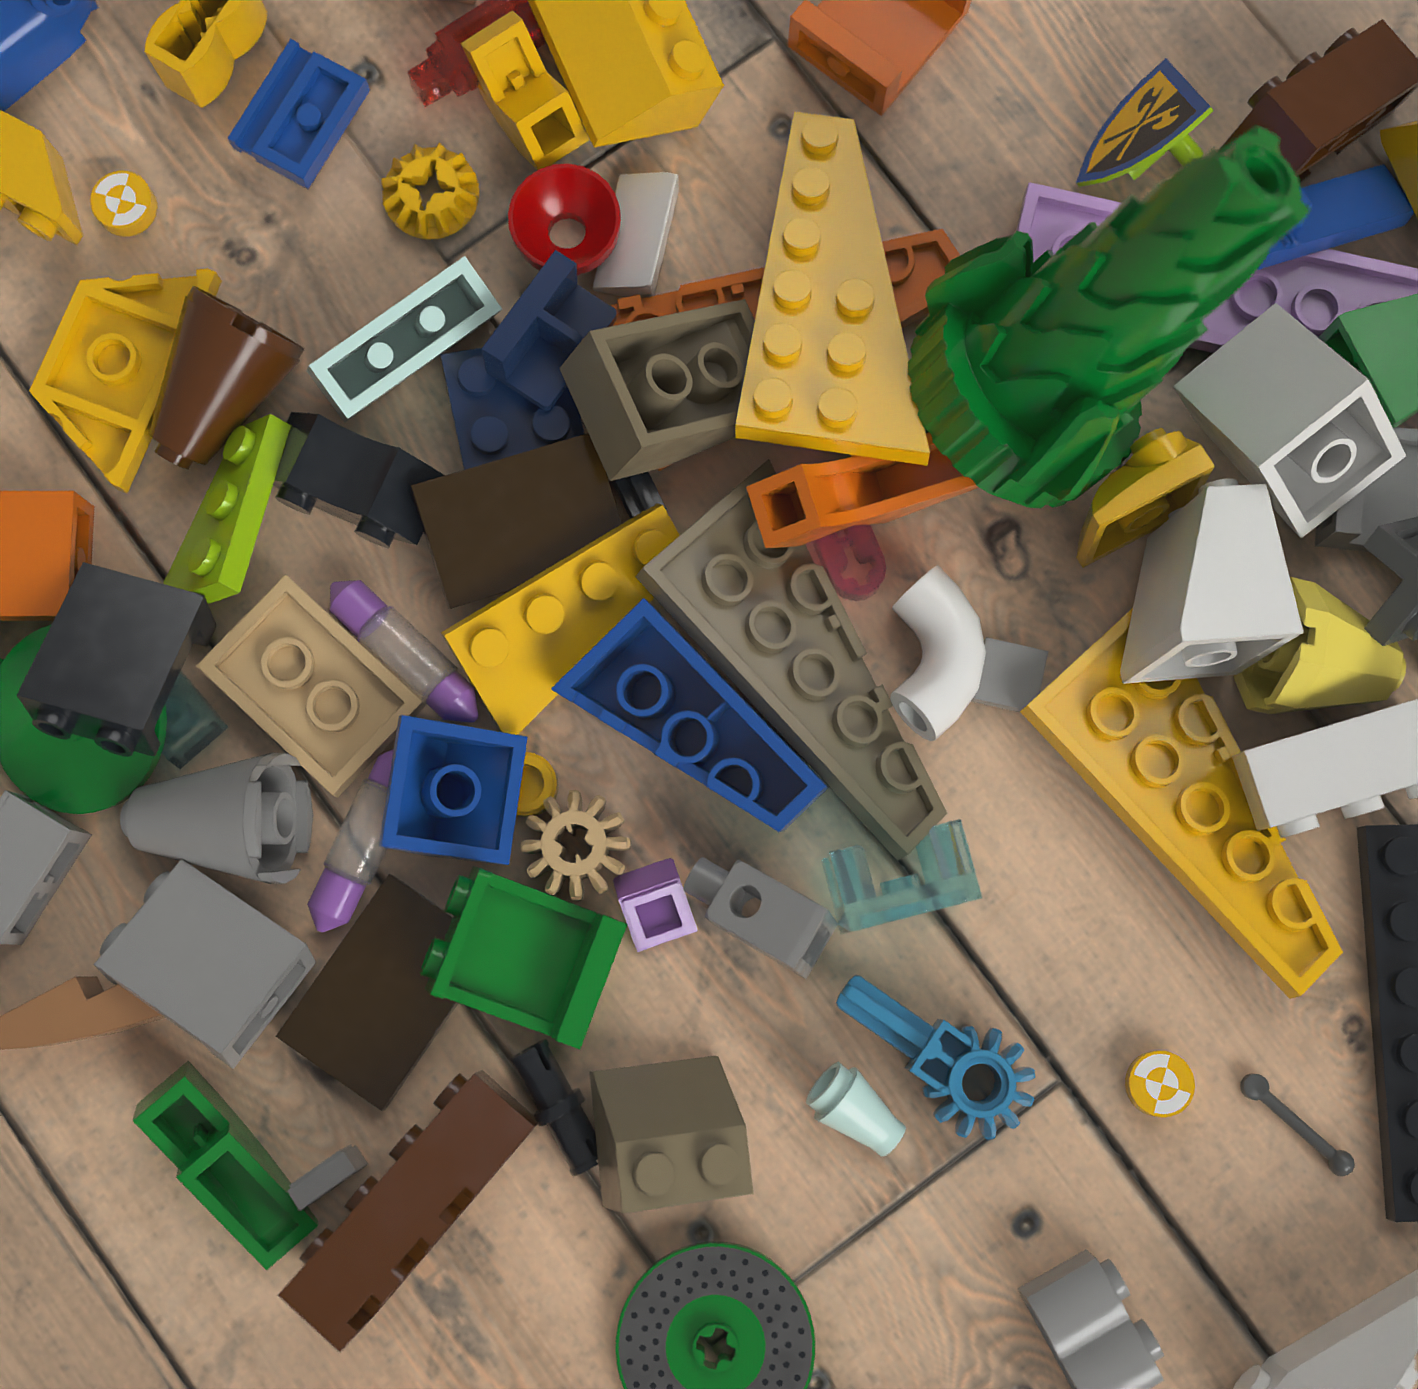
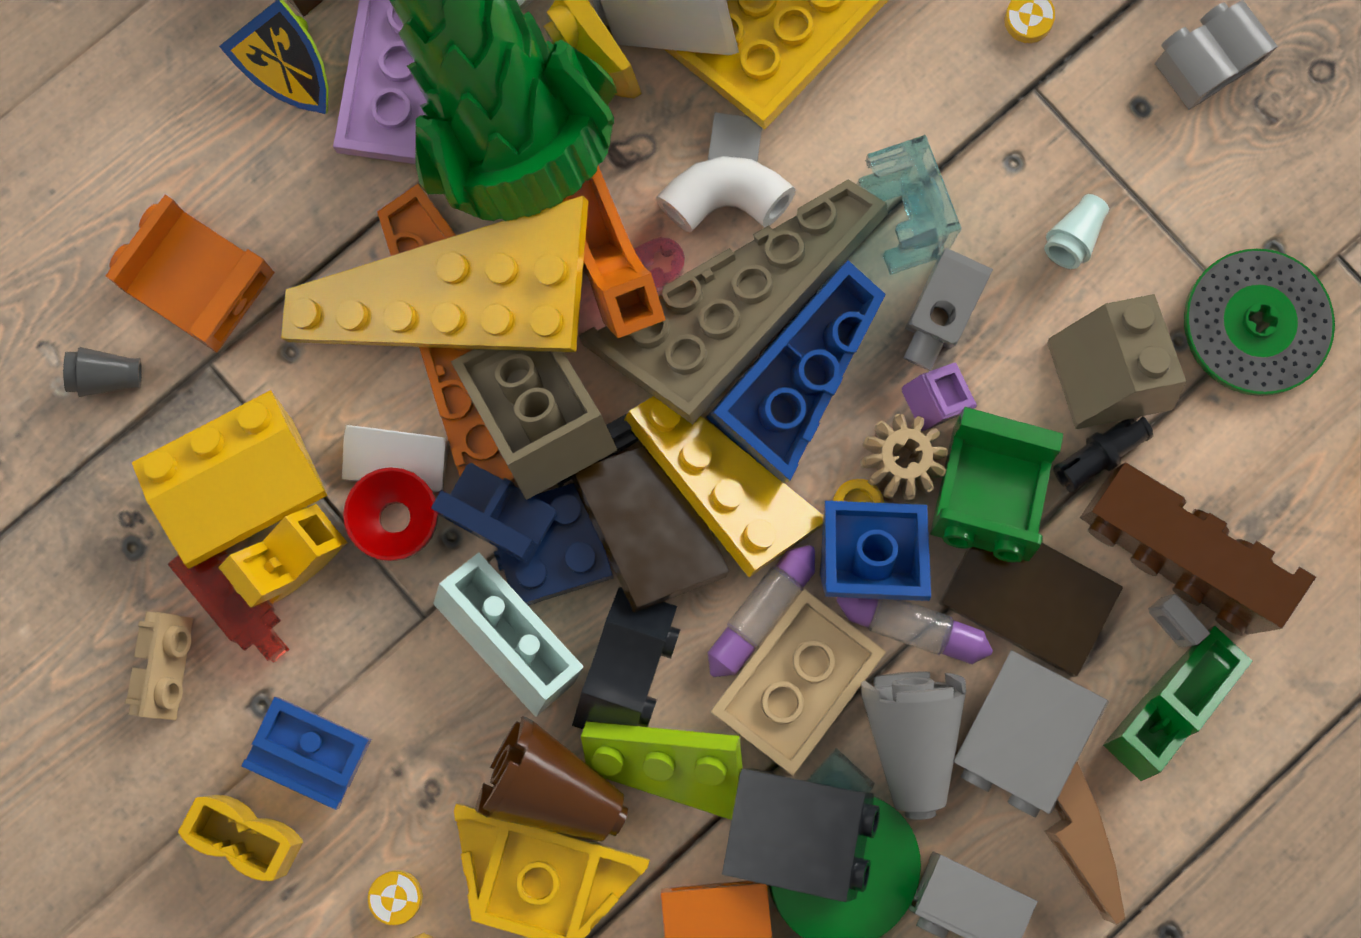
camera: 100 degrees left, 0 degrees up
(447, 210) = (381, 654): yellow gear -> none
(942, 1056) = (1033, 168): dark azure gear -> none

